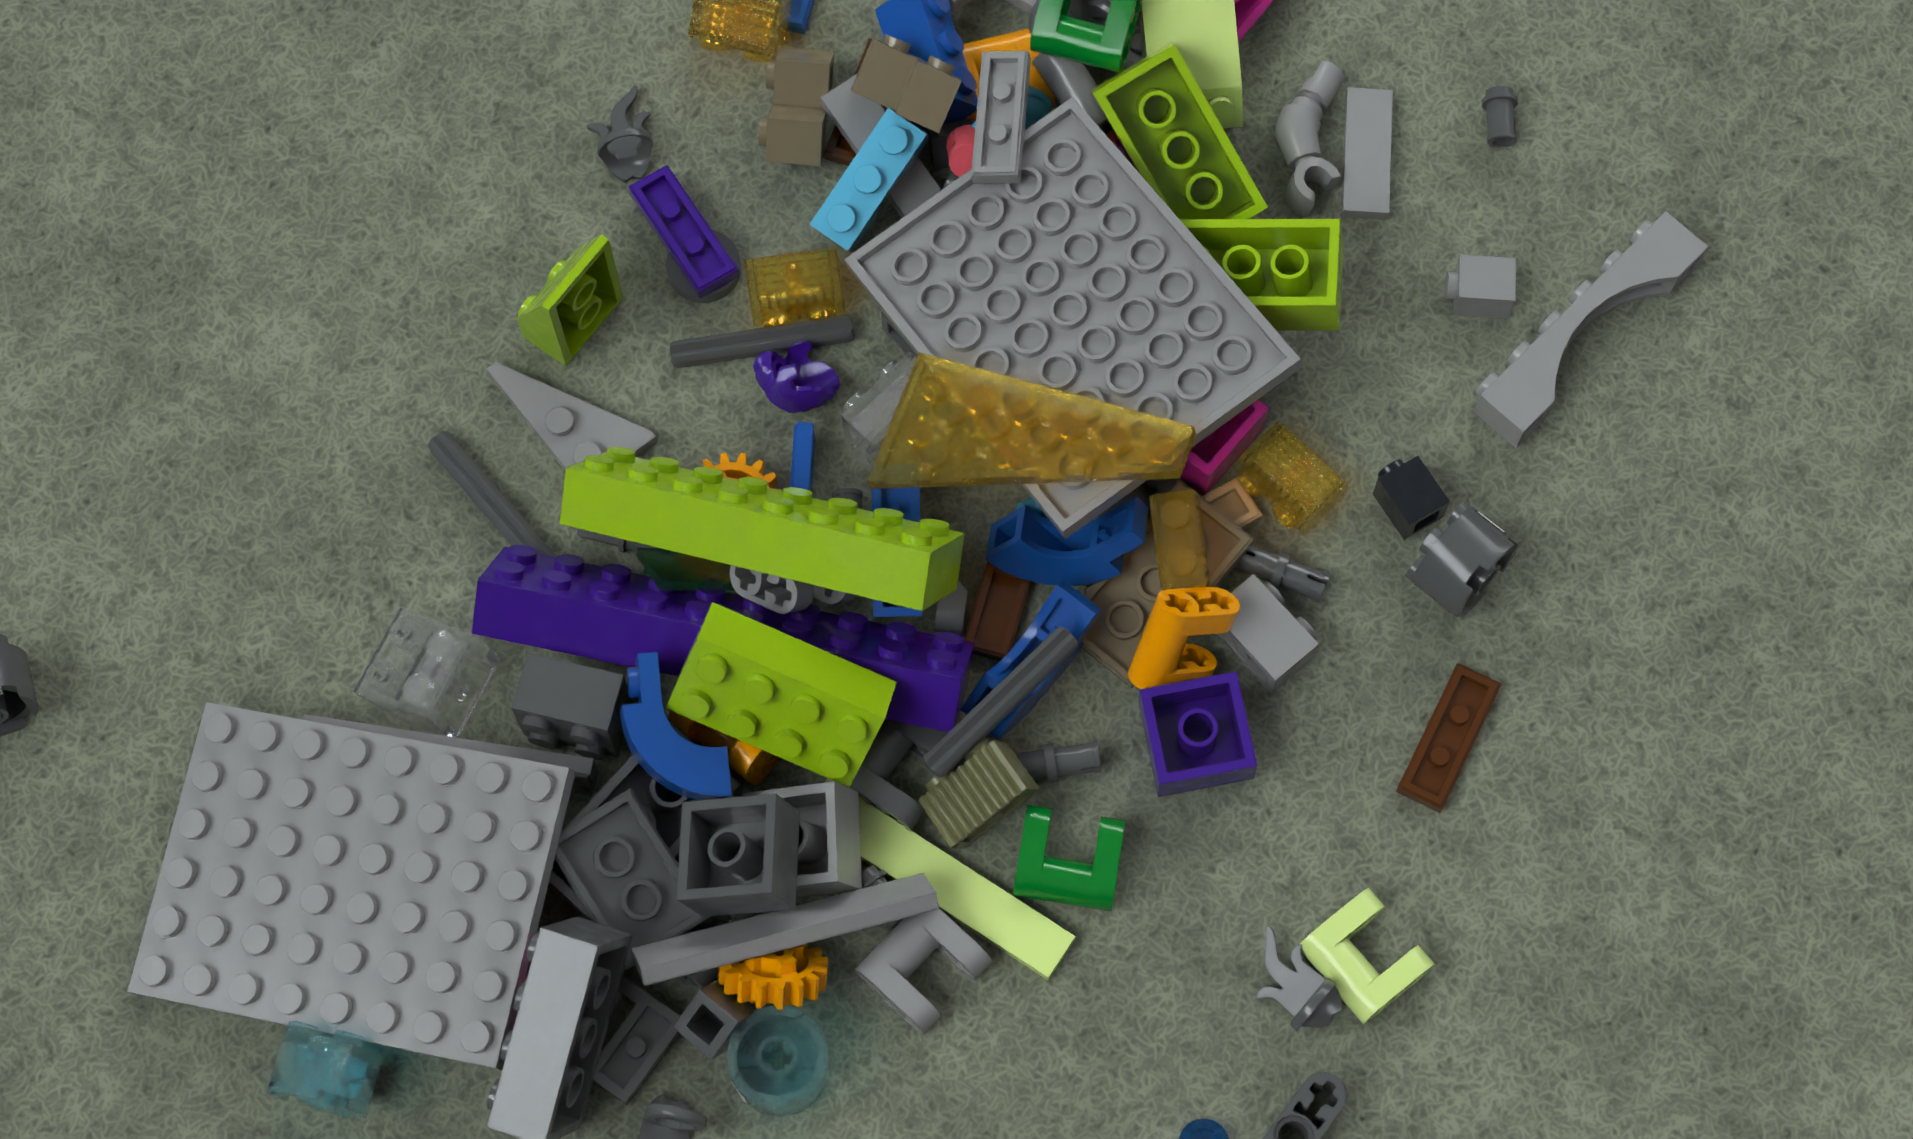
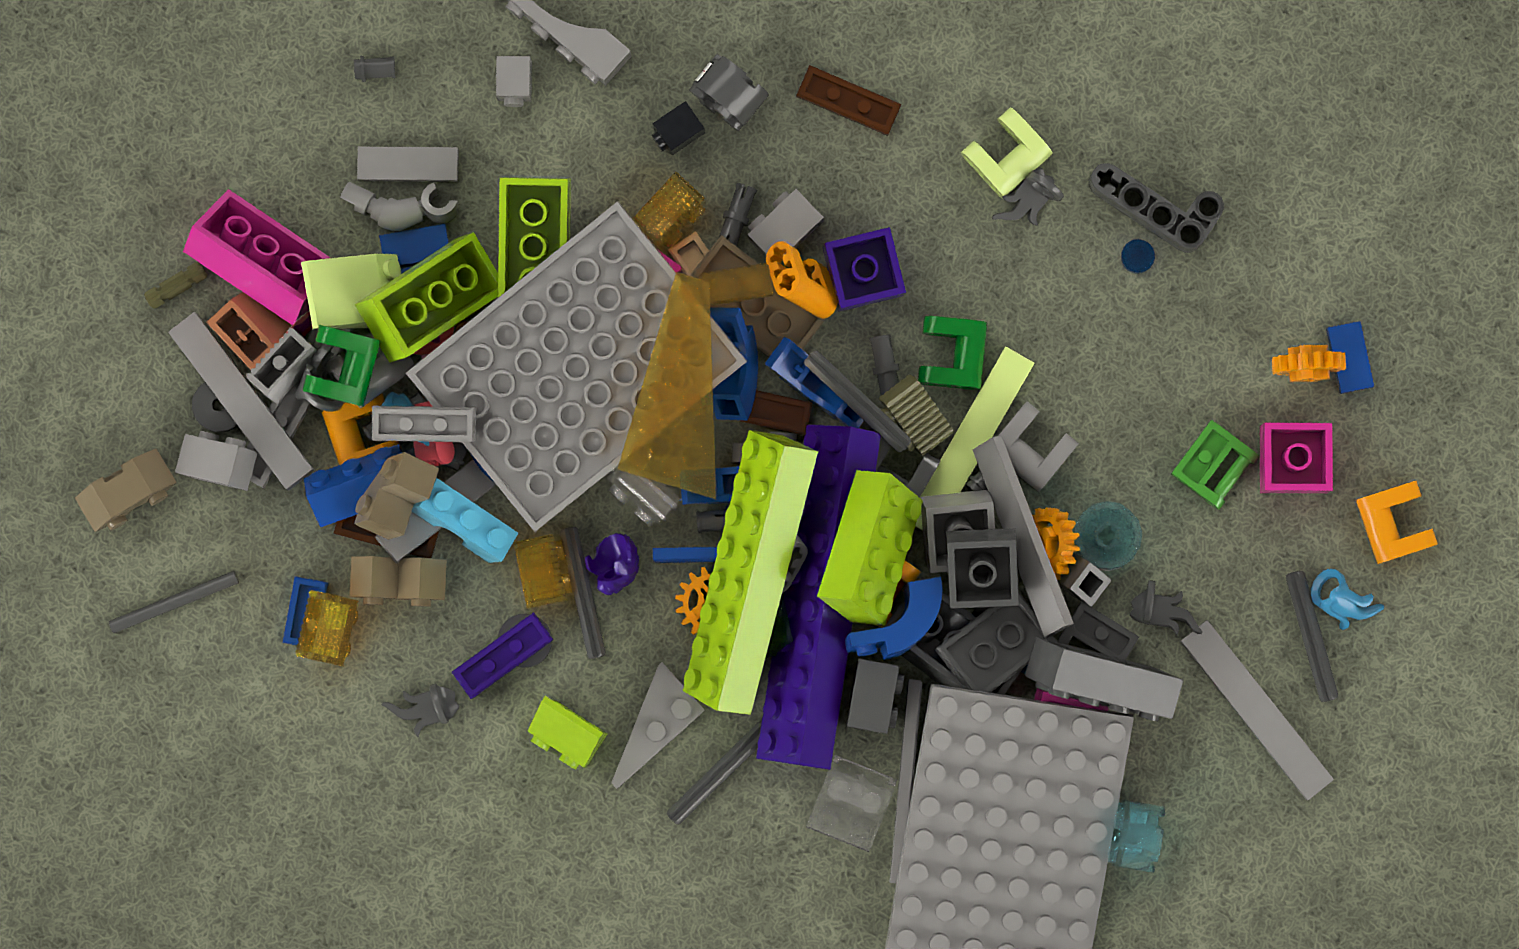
camera: 90 degrees left, 15 degrees up
(1258, 152) = (414, 244): none -> blue tile

